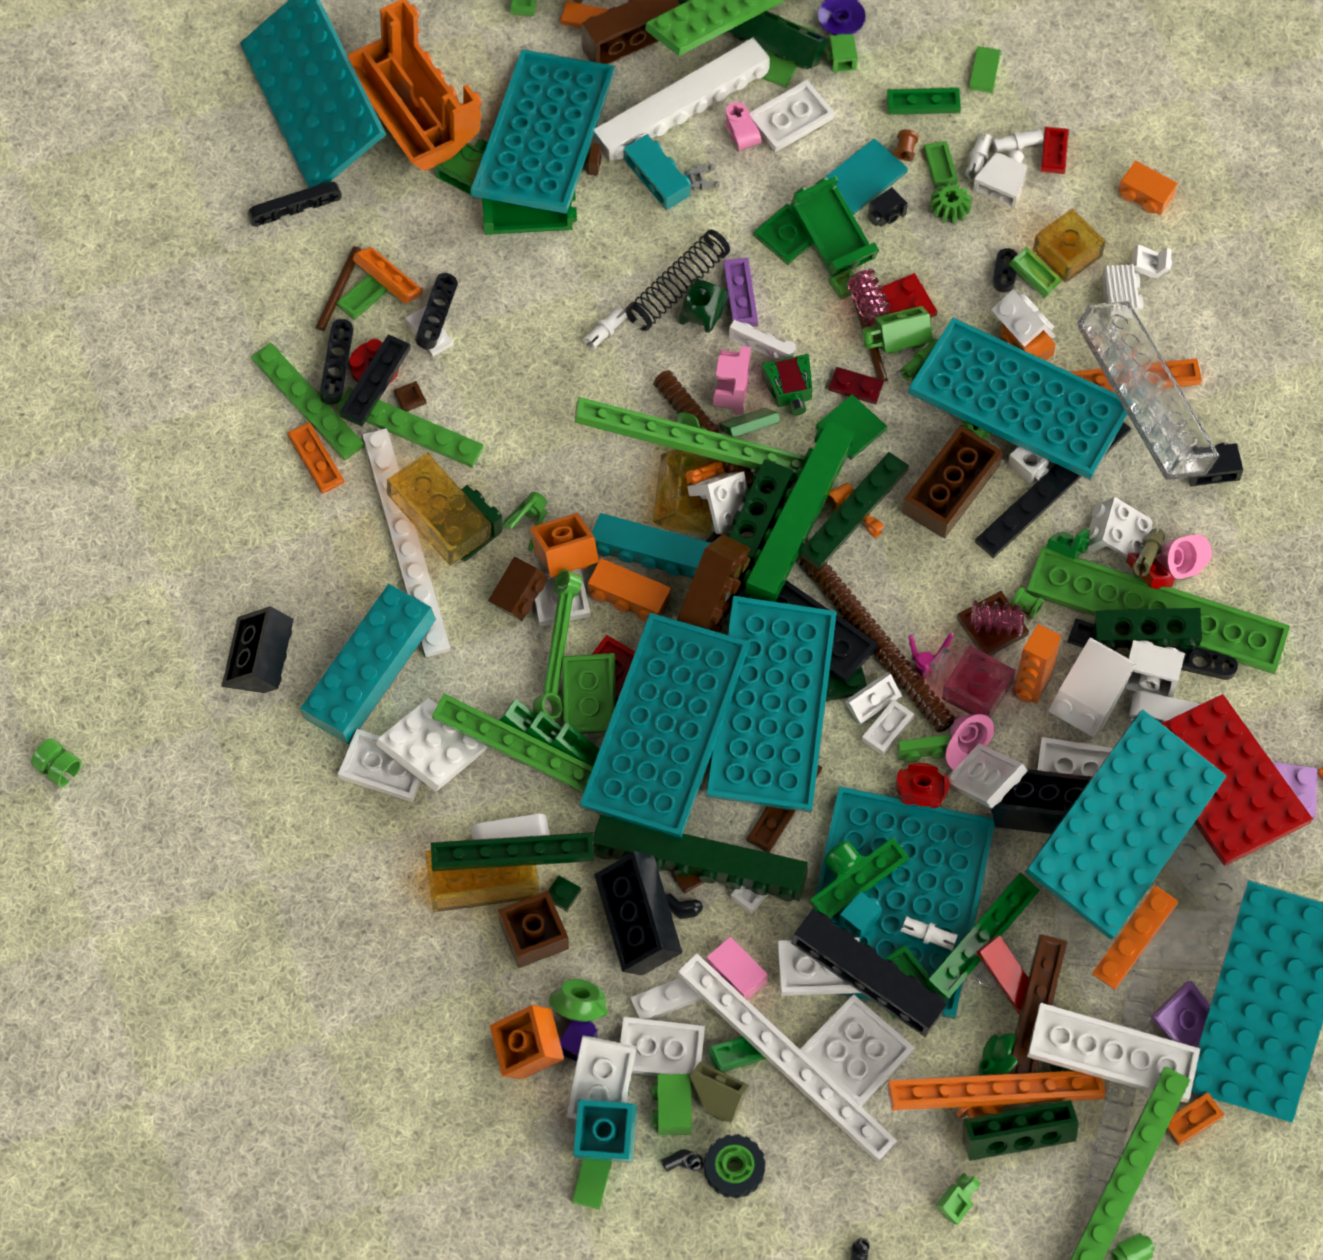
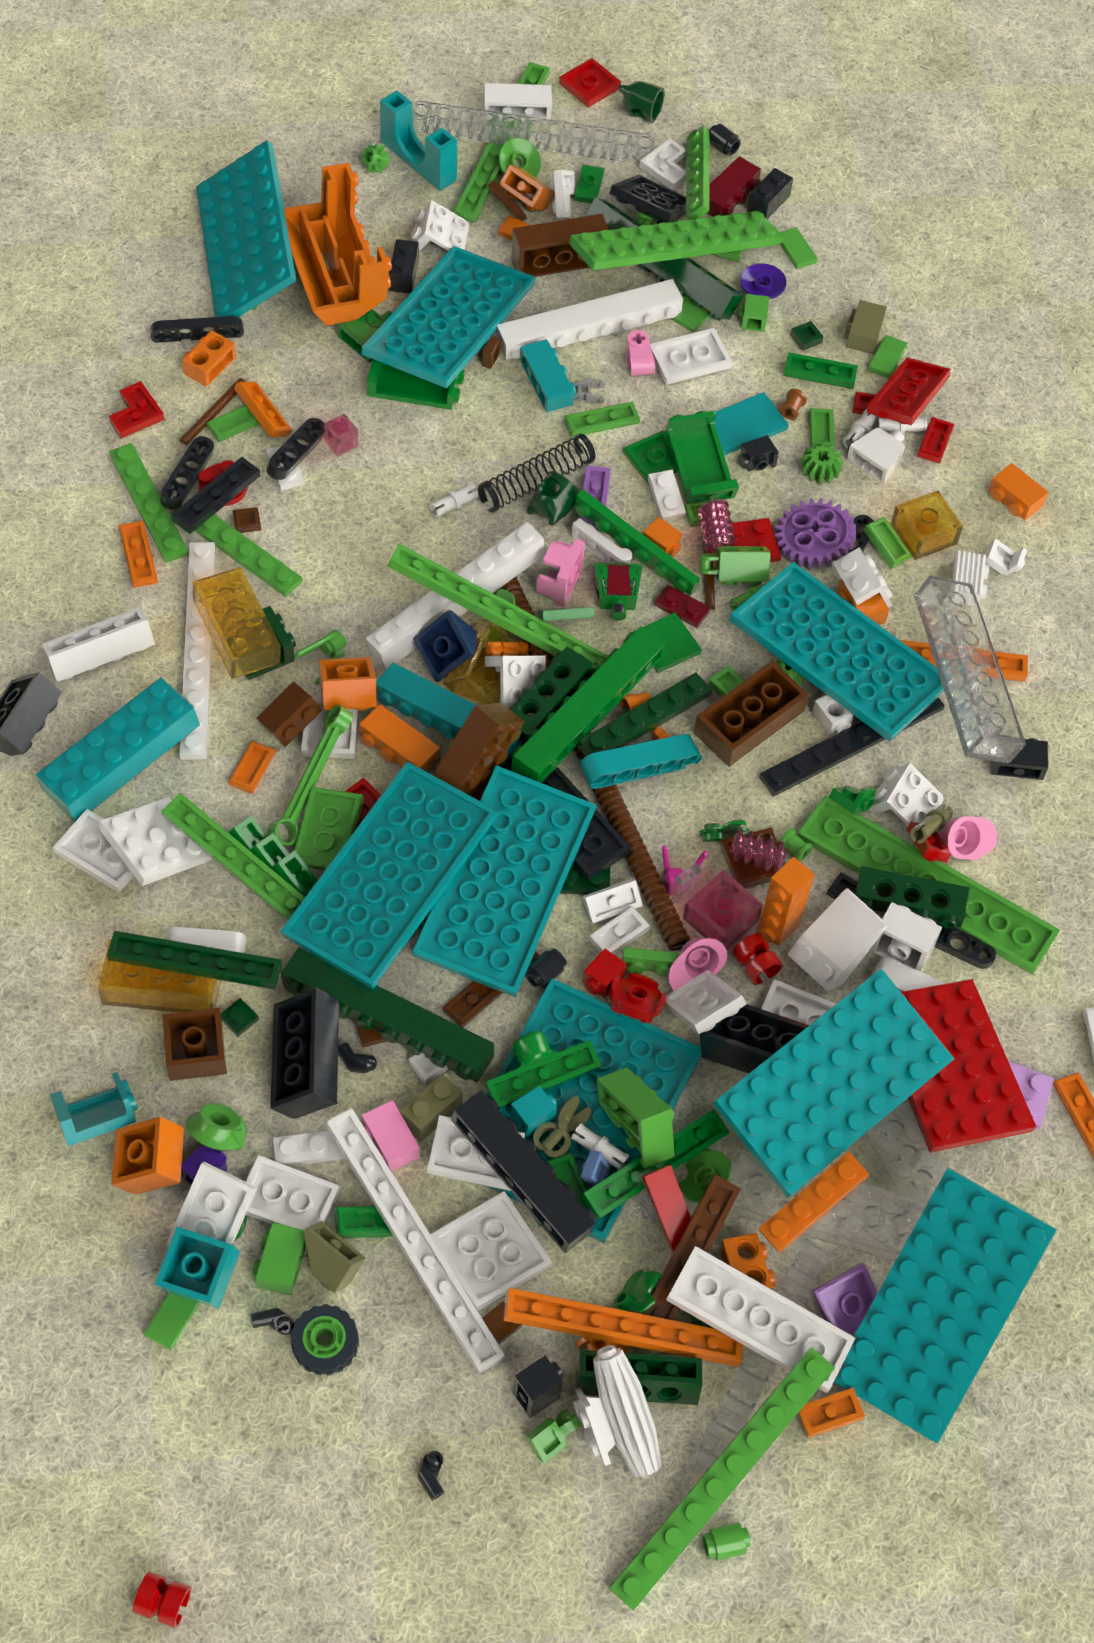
camera: 10 degrees right, 5 degrees down
(268, 309) = (141, 411): none -> red plate
(312, 562) = (98, 644): none -> white brick
(321, 234) = (208, 358): none -> orange brick
(465, 1014) = (95, 1113): none -> teal panel
(474, 285) = (341, 435): none -> clear pink brick
(480, 80) = (404, 266): none -> black brick
(496, 648) = (252, 767): none -> orange tile
(500, 31) = (439, 226): none -> white bracket
(624, 451) = (488, 571): none -> white brick
(647, 484) = (446, 644): none -> dark blue slope
(723, 205) = (602, 419): none -> bright green tile
(765, 933) = (424, 1110): none -> olive brick
(796, 332) = (637, 543): none -> green plate
(809, 272) = (666, 495): none -> white plate
(818, 321) = (664, 536): none -> orange brick
(831, 778) = (545, 967): none -> black brick
(862, 555) = (639, 761): none -> teal beam
(882, 1112) = (500, 1329): none -> reddish brown tile
(884, 770) = (602, 972): none -> red brick
(891, 922) = (566, 1125): none -> olive piece
(900, 65) = (806, 335): none -> dark green plate
(920, 454) = (725, 681): none -> bright green plate
(930, 955) = (595, 1169): none -> medium blue plate
(935, 1159) = (538, 1386): none -> black brick
(949, 608) = (716, 832): none -> green plate
(956, 42) = (865, 326): none -> olive brick
(958, 895) = (639, 1113): none -> bright green wedge
(971, 296) = (821, 527): none -> medium lavender gear
(976, 124) = (861, 401): none -> red tile
(1013, 1167) = (619, 1415): none -> white plate
(1016, 105) = (908, 391): none -> red plate
(1021, 721) = (755, 956): none -> red wheel
(1023, 929) = (700, 1172): none -> bright green dish
(1094, 1007) = (753, 1267): none -> orange brick

